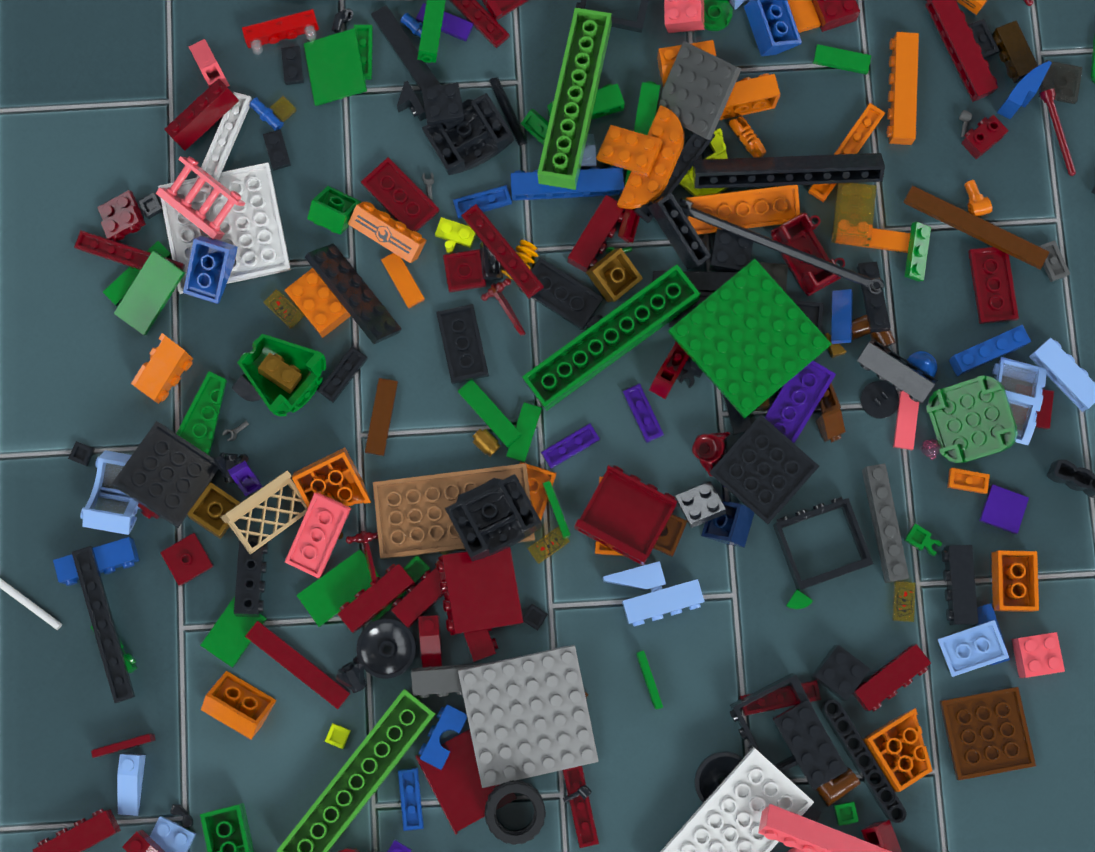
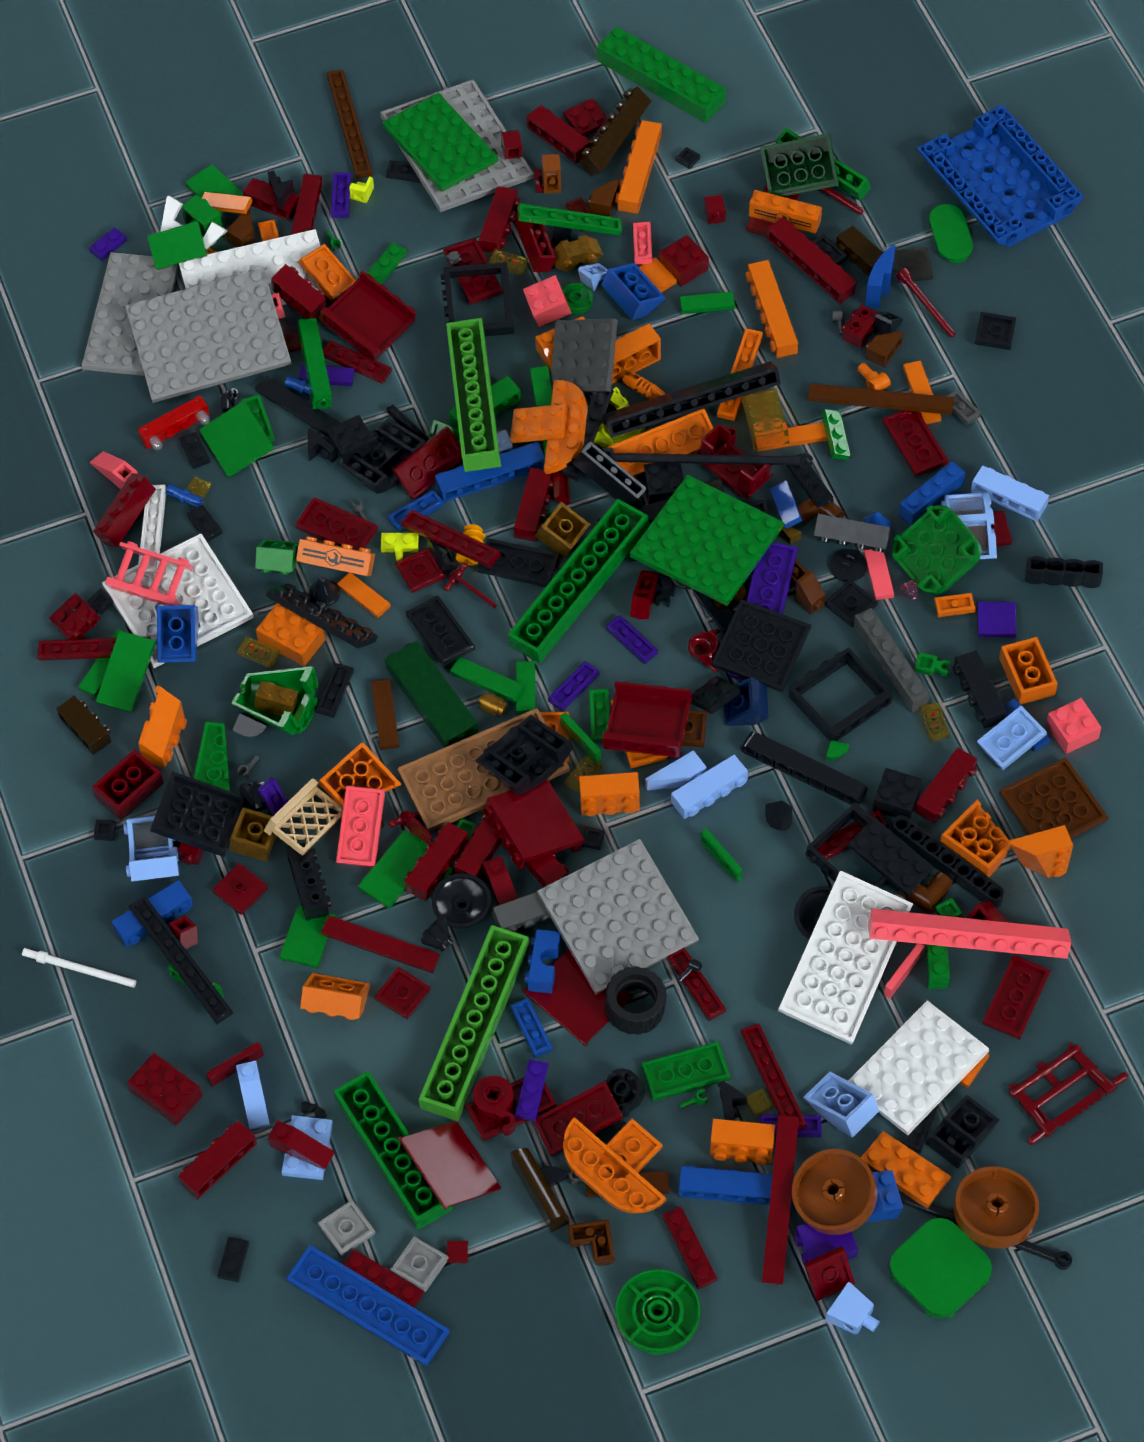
camera: 15 degrees left, 20 degrees down
(50, 750) = (164, 1089): none -> dark red brick
(95, 335) = (84, 724): none -> dark brown brick
(113, 416) = (127, 784): none -> dark red brick
(116, 593) = (185, 931): none -> dark red brick
(302, 723) = (402, 993): none -> dark red plate
(337, 736) = (441, 995): neon yellow tile -> none
(367, 263) = (325, 591): none -> black hat
(430, 412) = (431, 694): none -> dark green brick
(508, 156) = (433, 457): none -> dark red tile
(563, 582) = (609, 794): none -> orange brick
(584, 487) = (599, 713): none -> green plate
(718, 656) = (779, 815): none -> black brick
(760, 612) = (804, 768): none -> black beam
(868, 443) = (849, 602): none -> black tile
(963, 795) = (1045, 851): none -> orange wedge
(998, 168) = (883, 348): none -> reddish brown slope
(1012, 141) = (886, 323): none -> black slope
(1019, 222) = (919, 385): none -> orange tile

